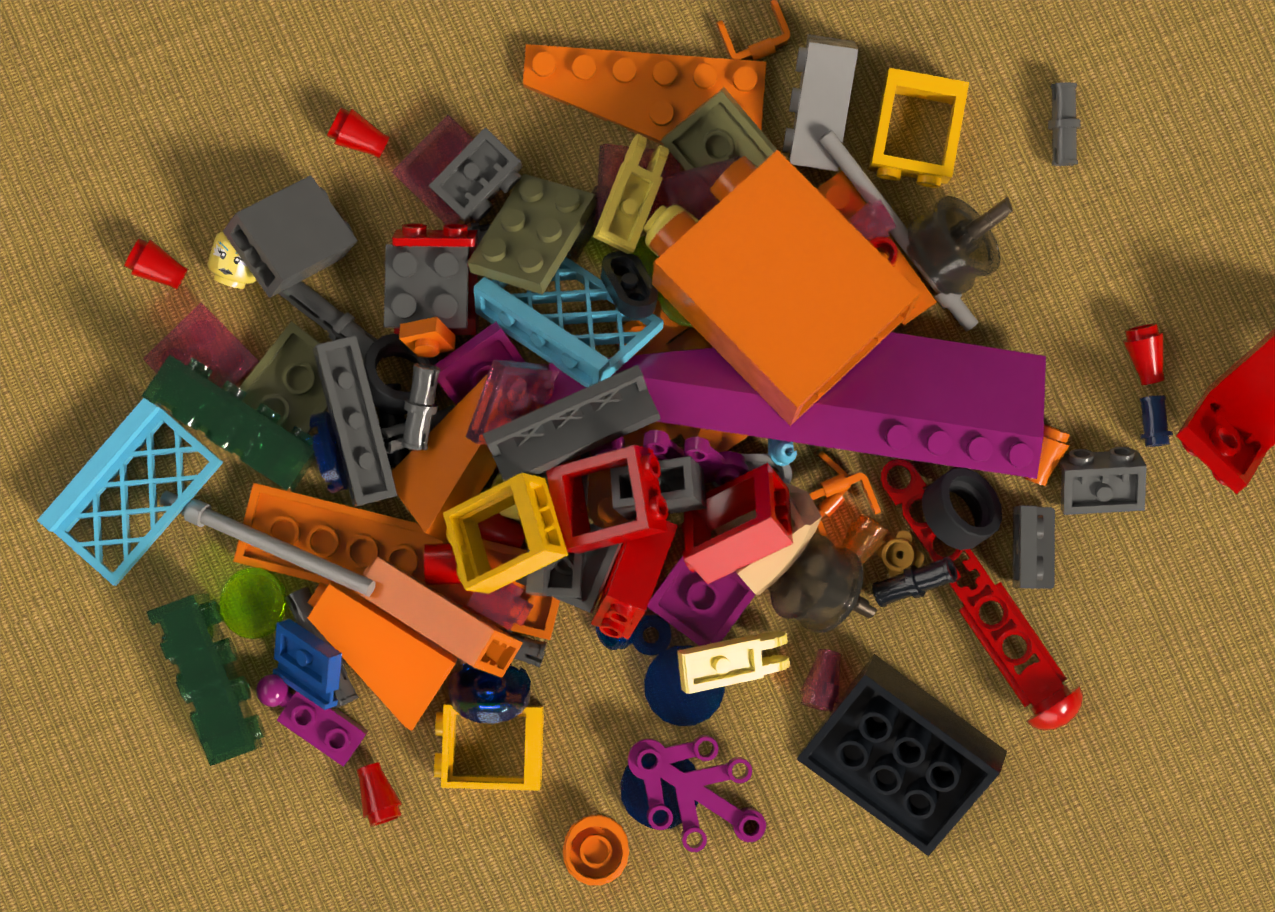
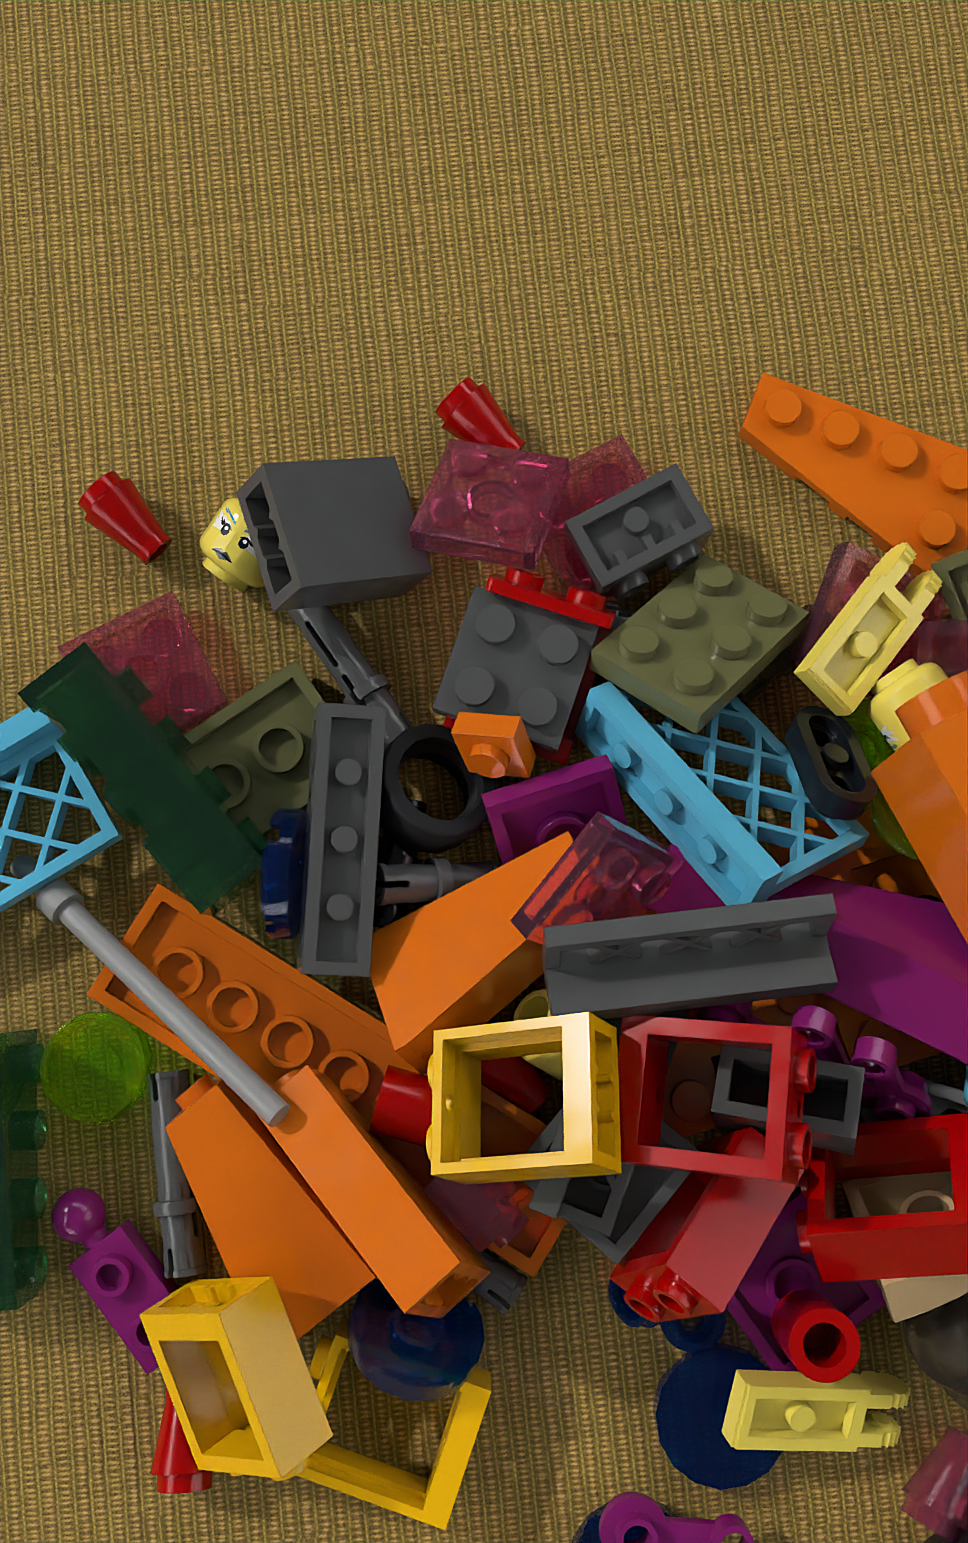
camera: 15 degrees right, 5 degrees down
(307, 663) = (143, 1198): blue plate -> none
(379, 187) = (490, 504): none -> clear pink plate
(409, 728) = (237, 1377): none -> yellow window
(420, 406) = (450, 849): dark grey pin -> none
(714, 615) = (816, 1336): none -> red brick

